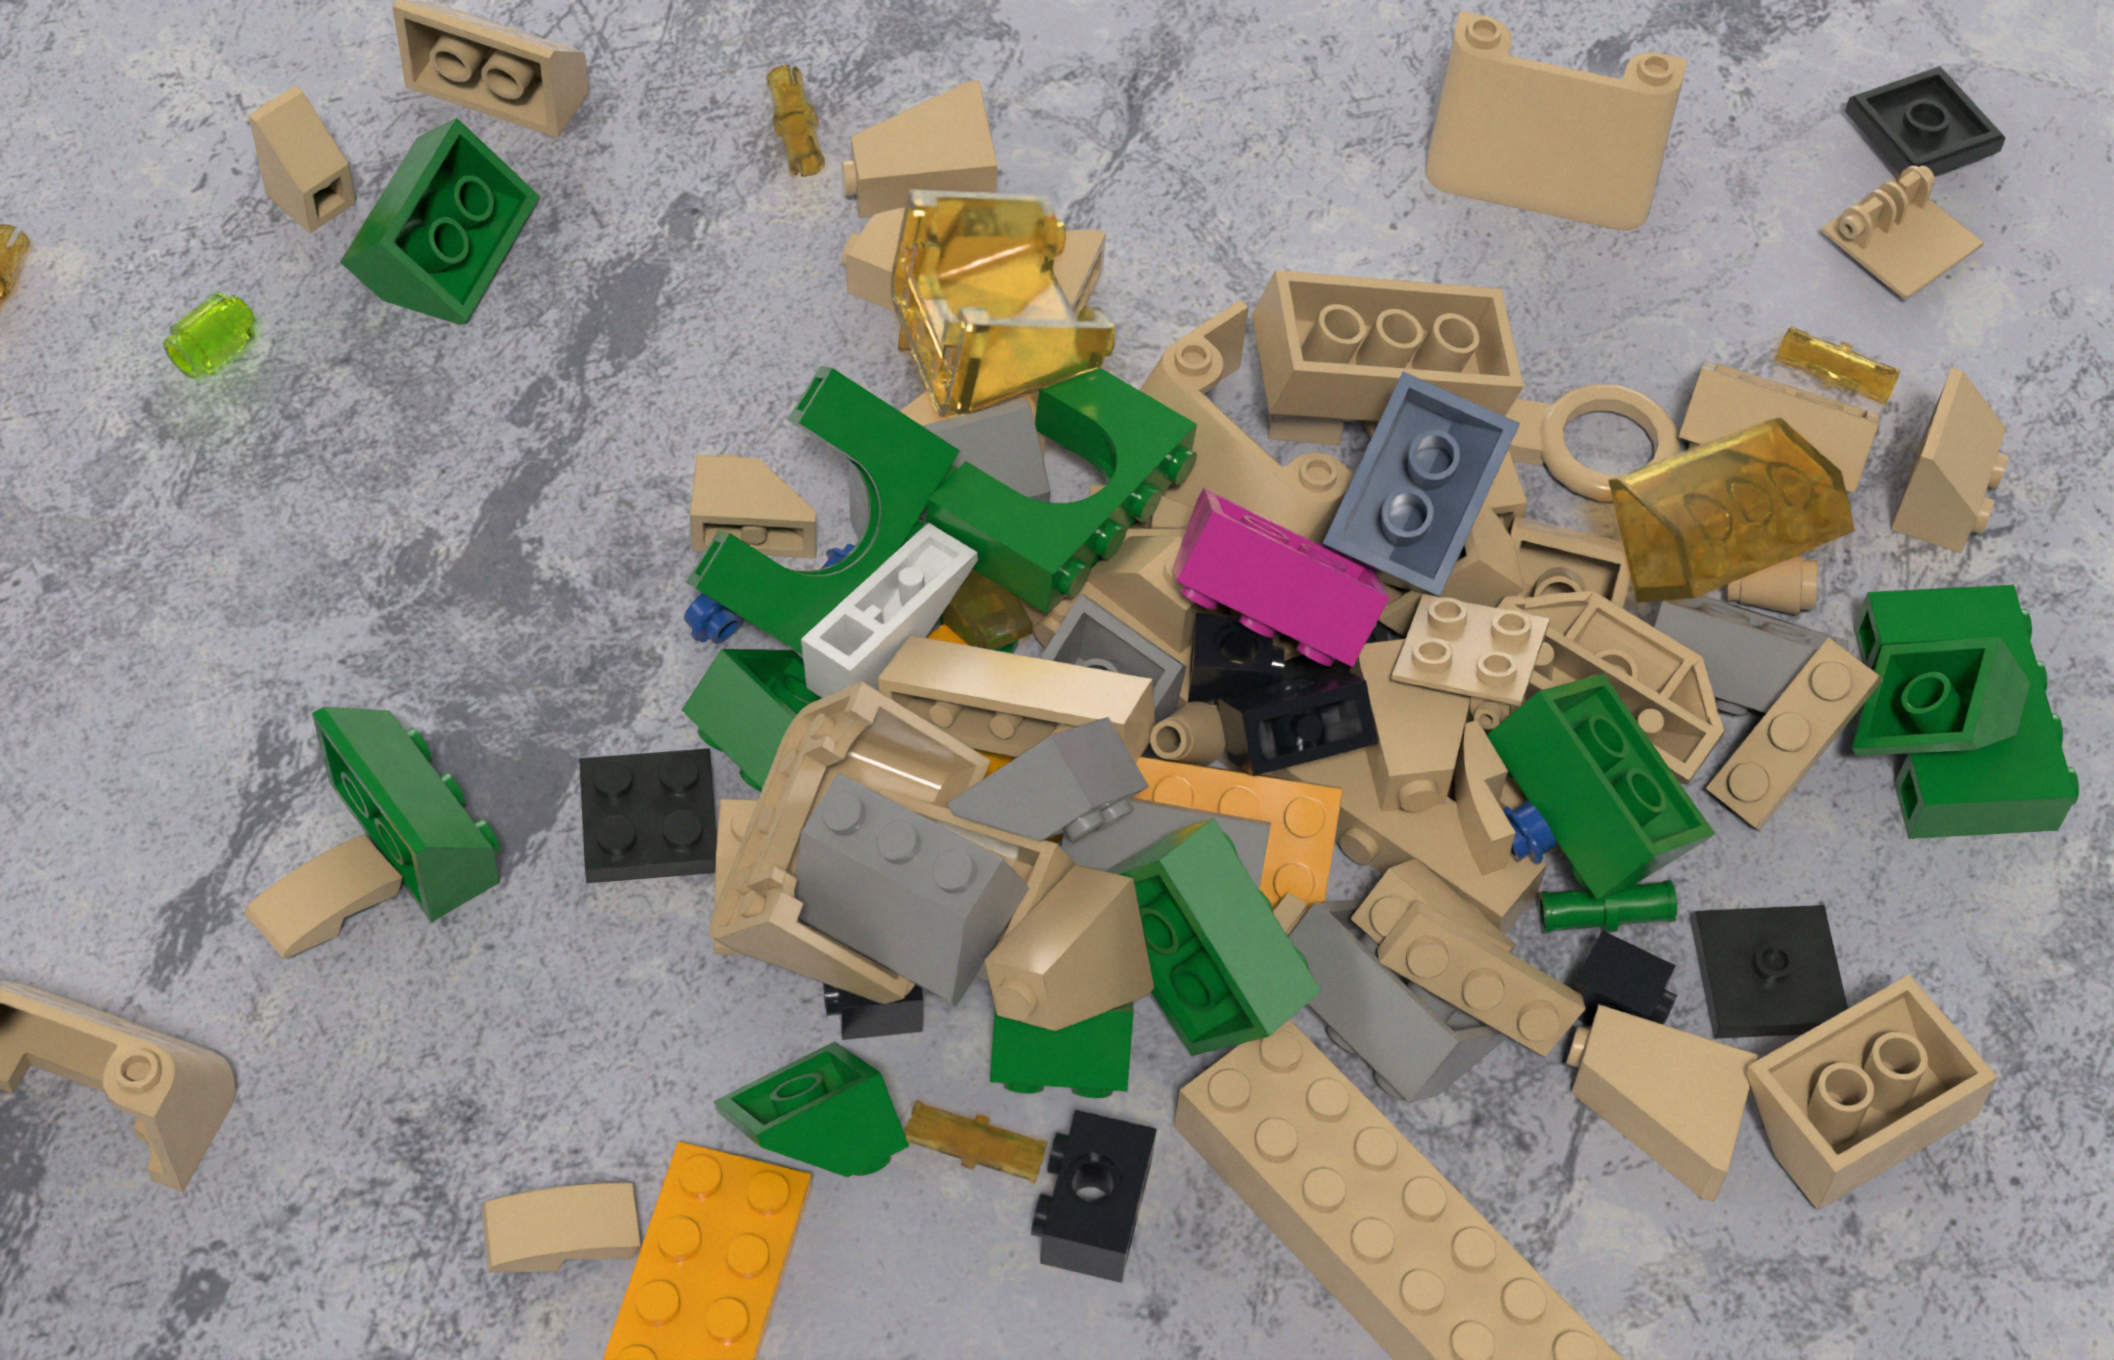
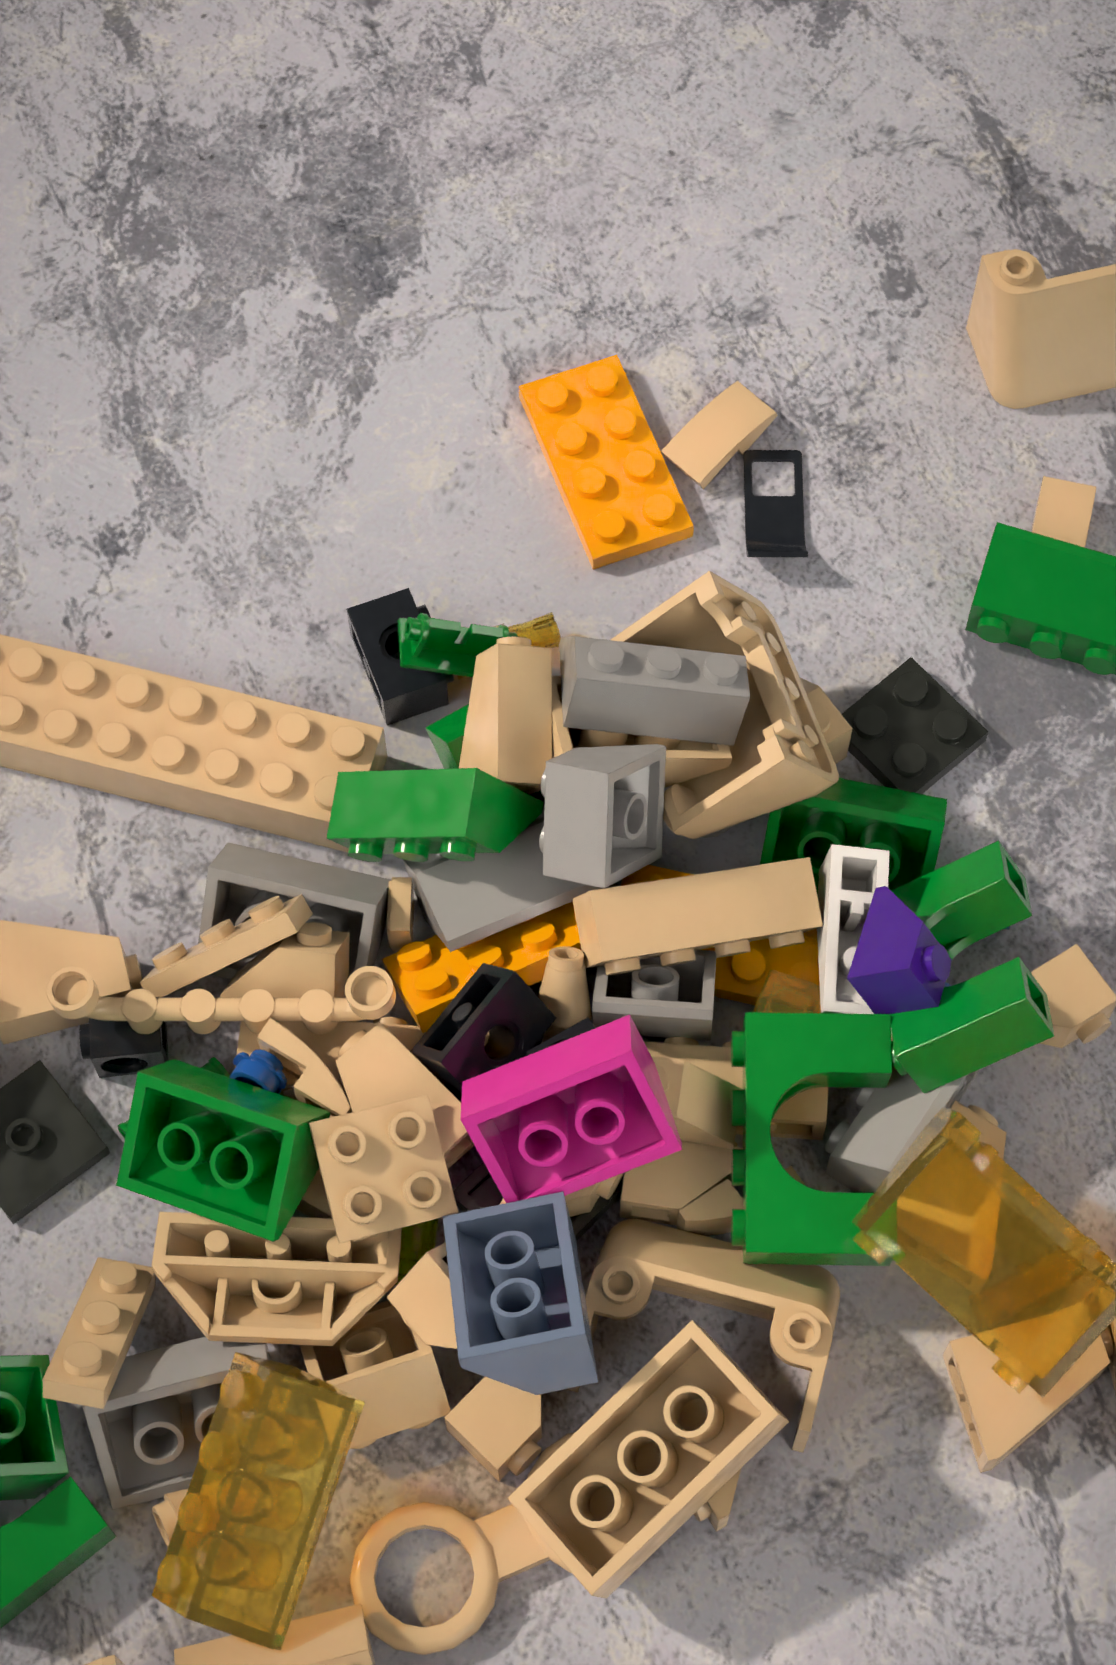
camera: 150 degrees right, 10 degrees up
(586, 1102) = (774, 522): none -> black piece
(820, 1112) = (615, 578): green slope -> none
(879, 525) = (897, 959): none -> dark purple slope
(1044, 1124) = (444, 644): none -> green hinge
(1674, 967) = (367, 992): none -> tan bar

